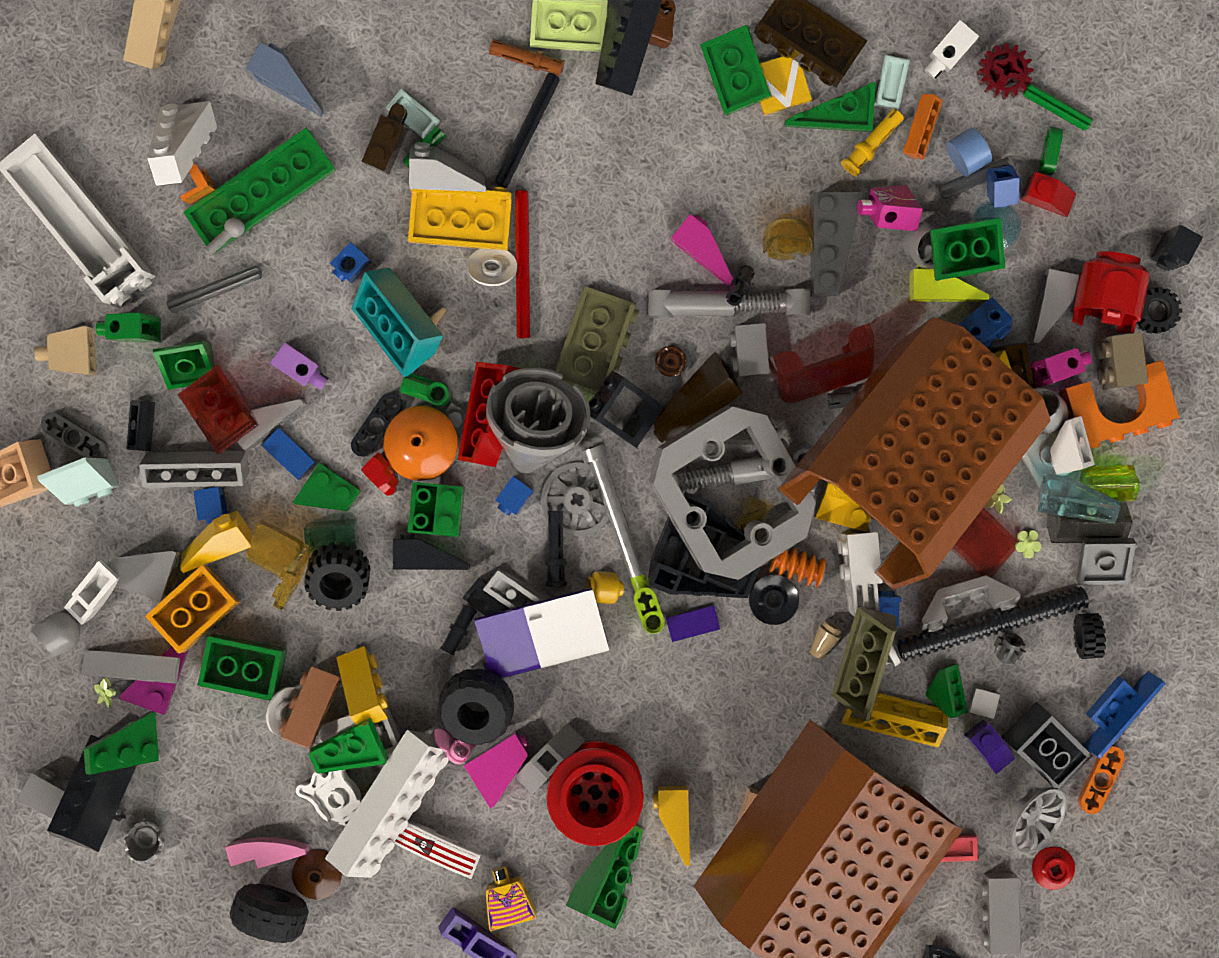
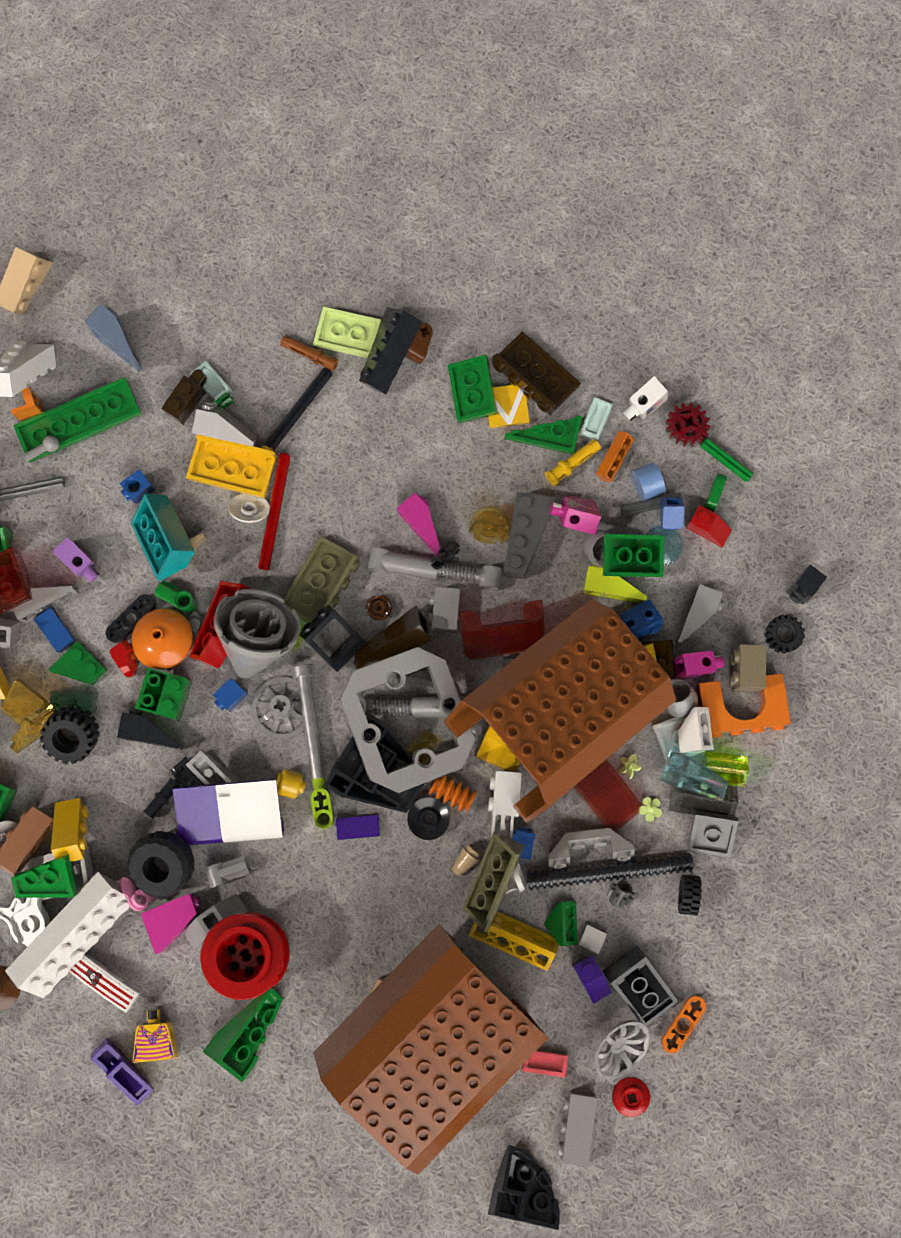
camera: 15 degrees right, 10 degrees down
(547, 702) = (222, 873): none -> light grey piece
(555, 561) = (253, 755): black pin -> none
(674, 813) = (311, 987): yellow slope -> none
(1113, 290) = (747, 609): red piece -> none
(1118, 709) = (705, 964): blue bracket -> none

